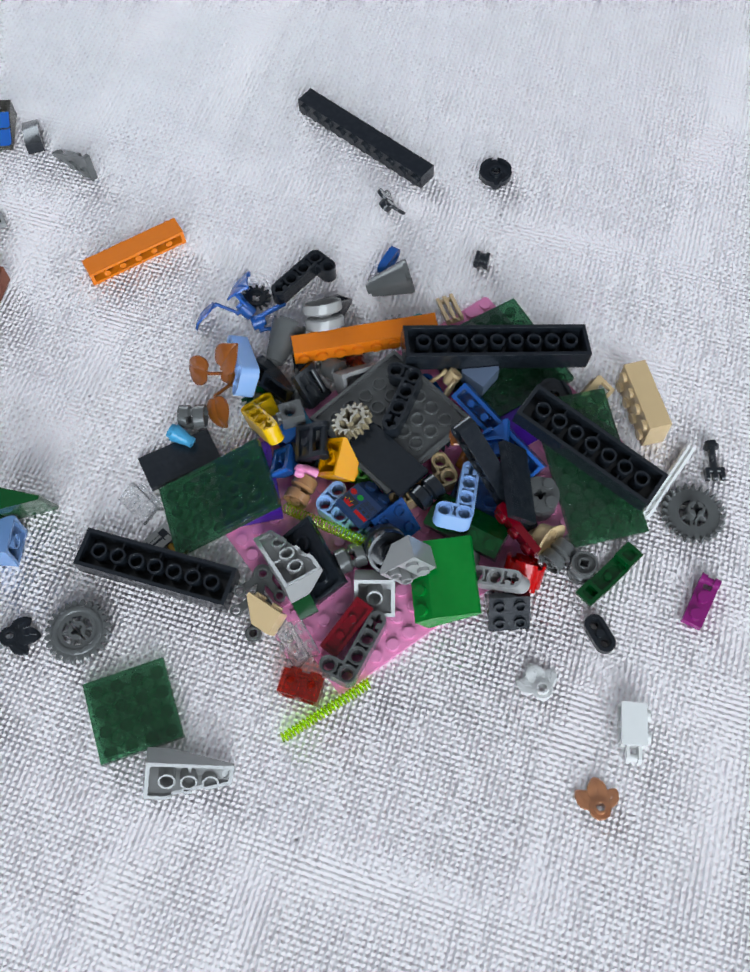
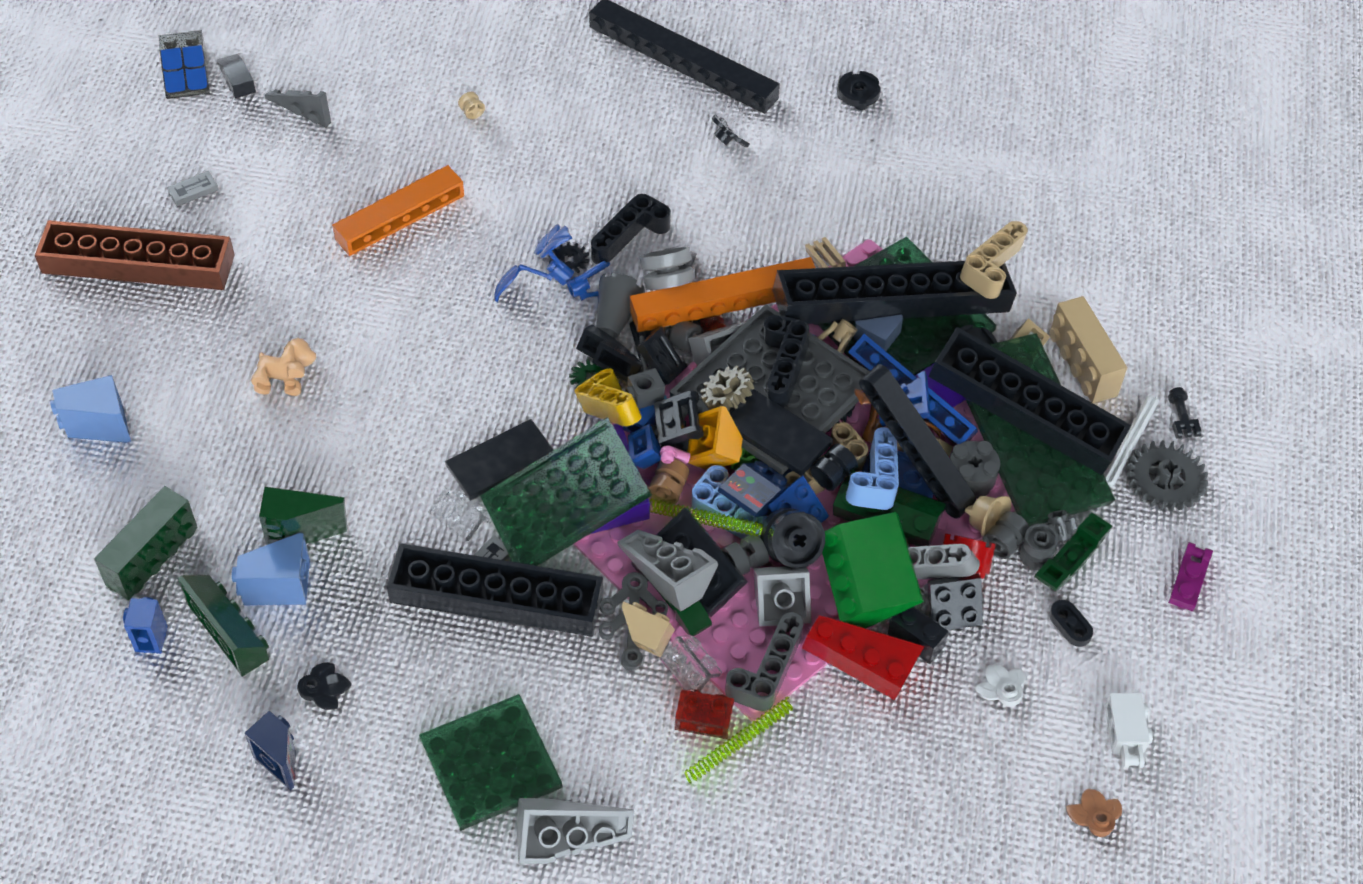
camera: 10 degrees left, 10 degrees down
(32, 373) = (286, 368): none -> light nougat animal
(93, 640) = (407, 688): dark grey gear -> none
(180, 435) = (497, 427): dark azure cone -> none
(199, 416) = (519, 401): dark grey wheel -> none
(200, 169) = (471, 105): none -> tan wheel
(226, 358) = (508, 345): dark orange plant -> none
(246, 368) = (573, 336): light blue beam -> none
(346, 627) = (754, 635): dark red plate -> none
(389, 259) = (737, 202): blue beam -> none
(391, 281) = (746, 226): dark grey cone -> none
(408, 560) = (824, 544): light grey slope -> none
(434, 650) = (863, 654): none -> red wedge
(477, 634) = (919, 629): none -> black brick
(481, 260) = (857, 194): black wheel -> none
(517, 483) = (946, 445): black tile -> none
(517, 531) = (953, 504): dark red plate -> none
(565, 331) = (982, 265): none -> tan beam
(602, 550) = (1062, 524): none -> dark grey gear

